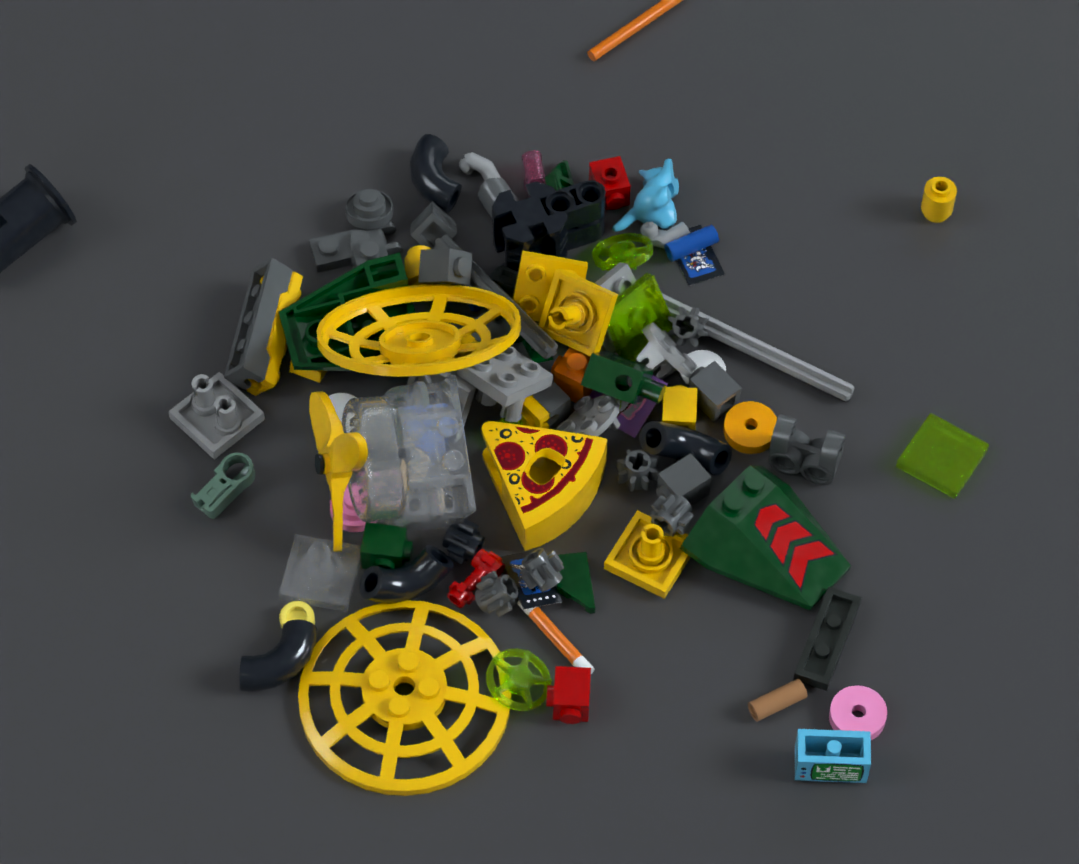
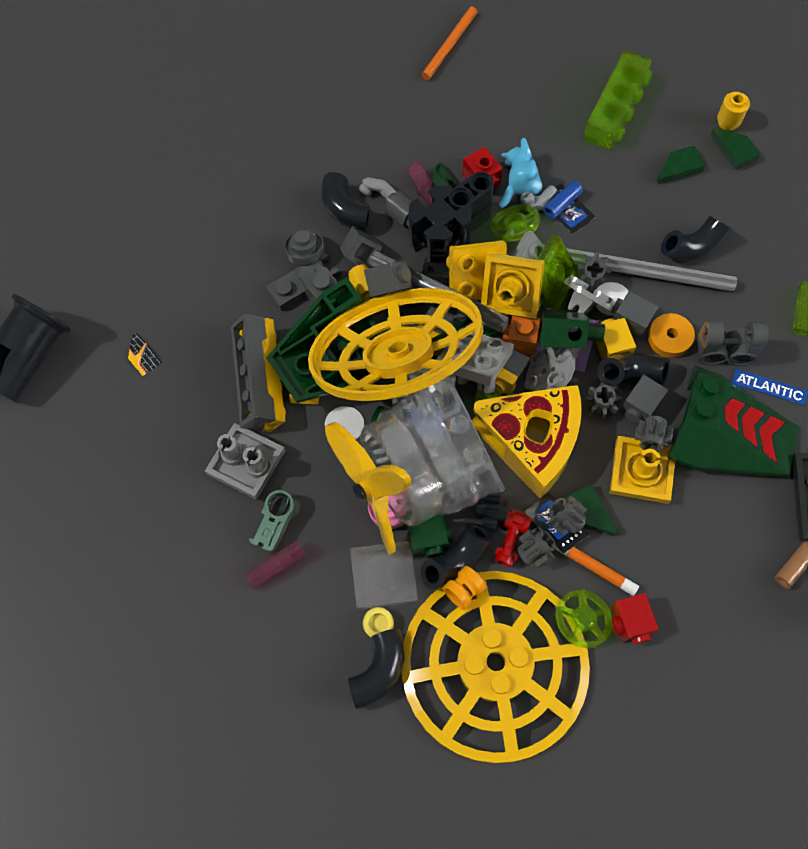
camera: 15 degrees left, 10 degrees up
(144, 274) = (142, 356): none -> sticker
(209, 527) = (275, 564): none -> clear pink pin
(399, 604) = (464, 587): none -> light orange wheel
(807, 148) = (617, 100): none -> clear neon green brick
(824, 337) = (695, 245): none -> black cylinder
(841, 516) = (770, 387): none -> blue sticker
(851, 243) = (681, 164): none -> dark green tile
(928, 243) = (736, 147): none -> dark green tile

